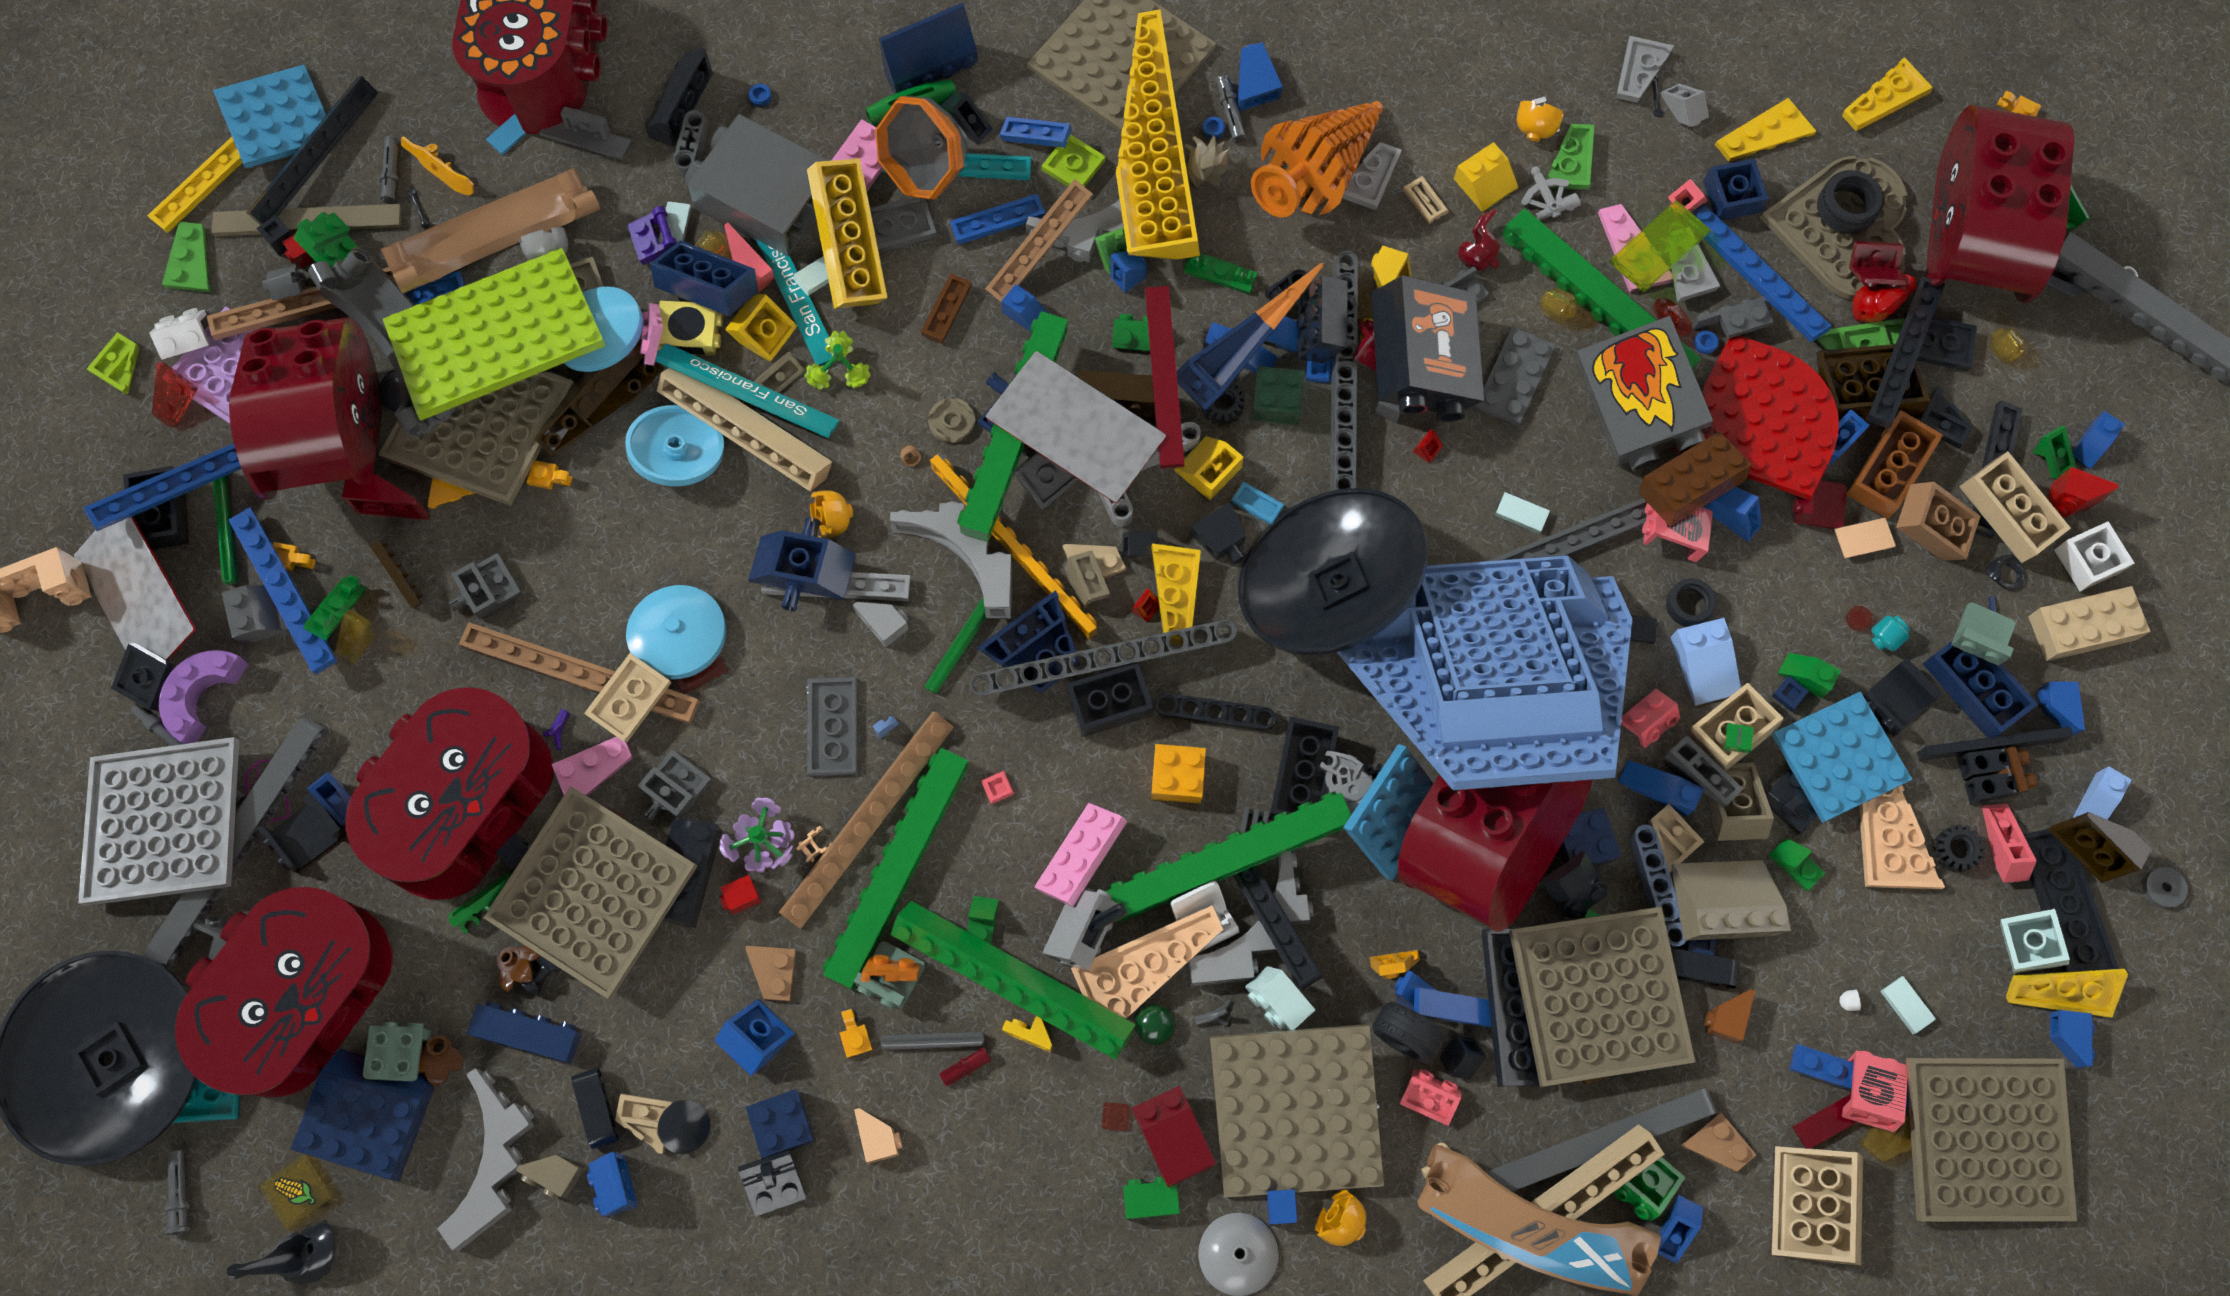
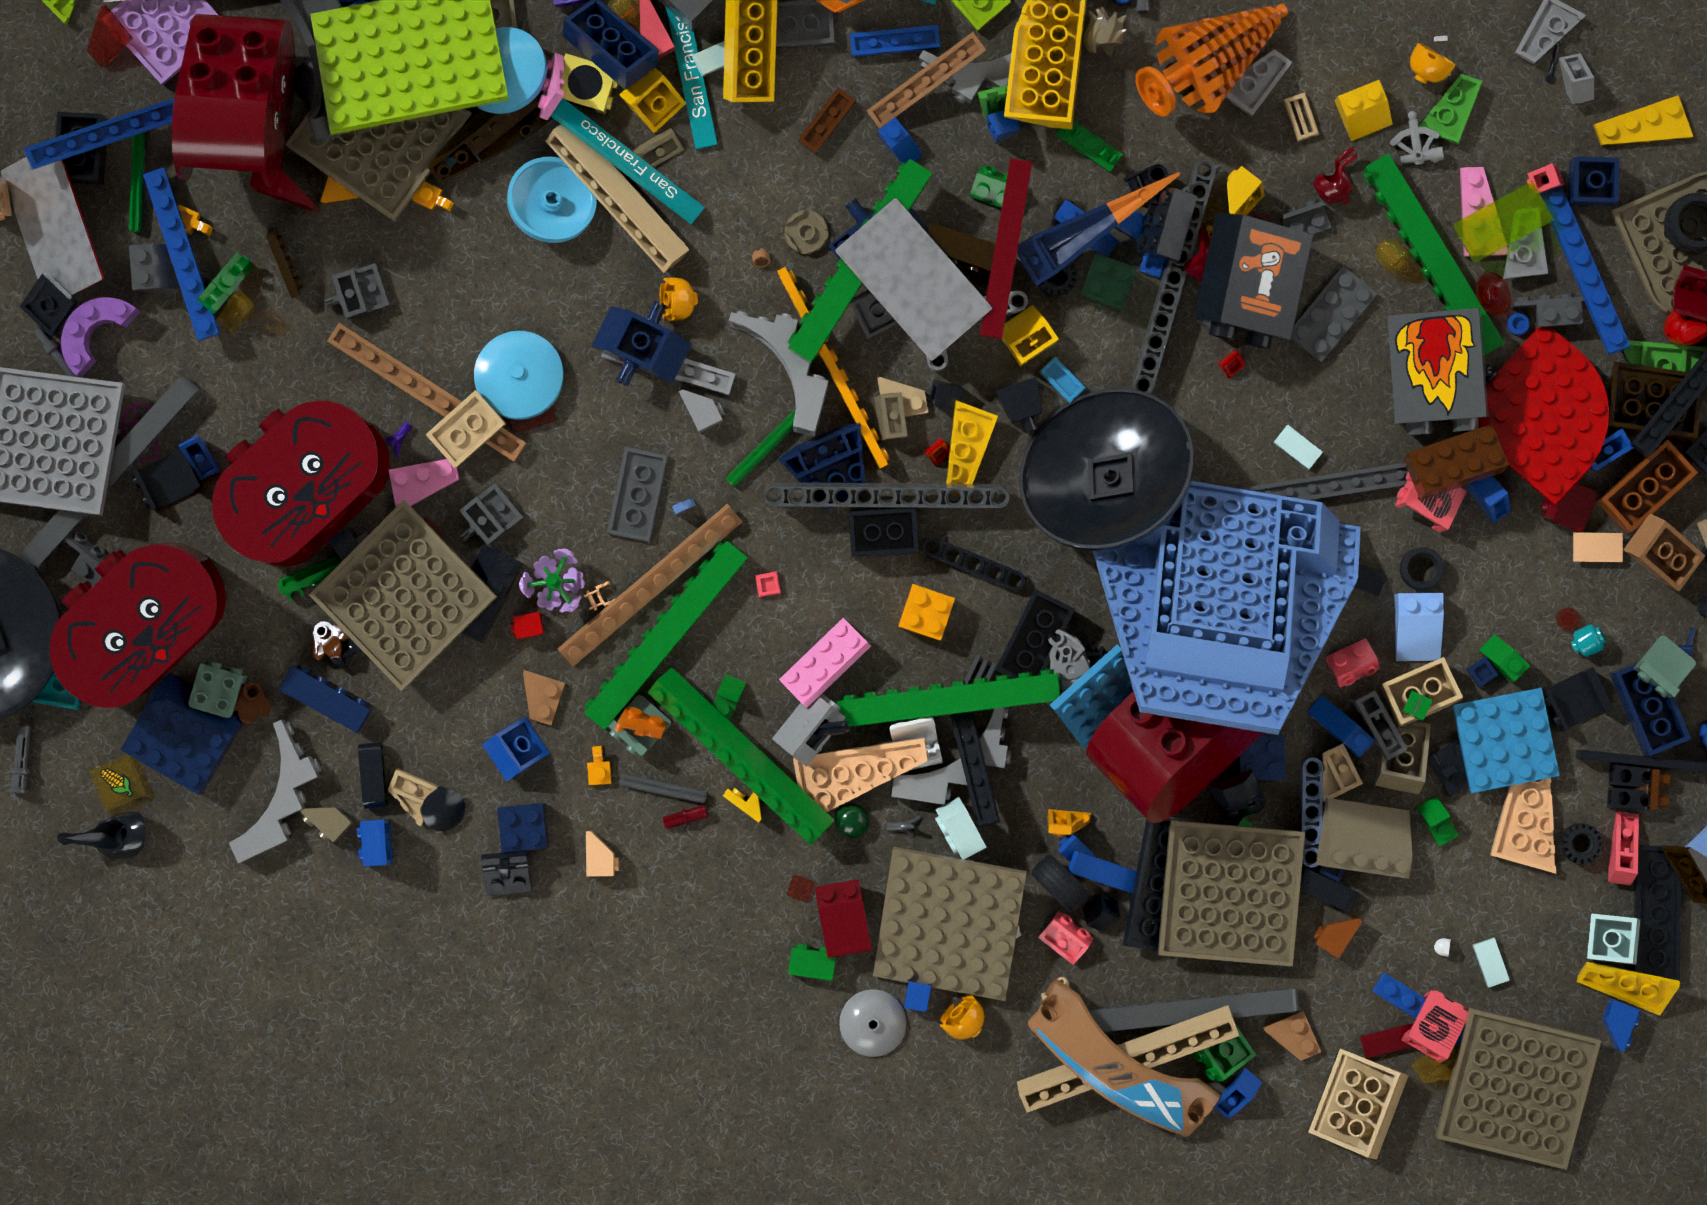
camera: 15 degrees right, 15 degrees up
(839, 346) = (720, 137): lime plant -> none

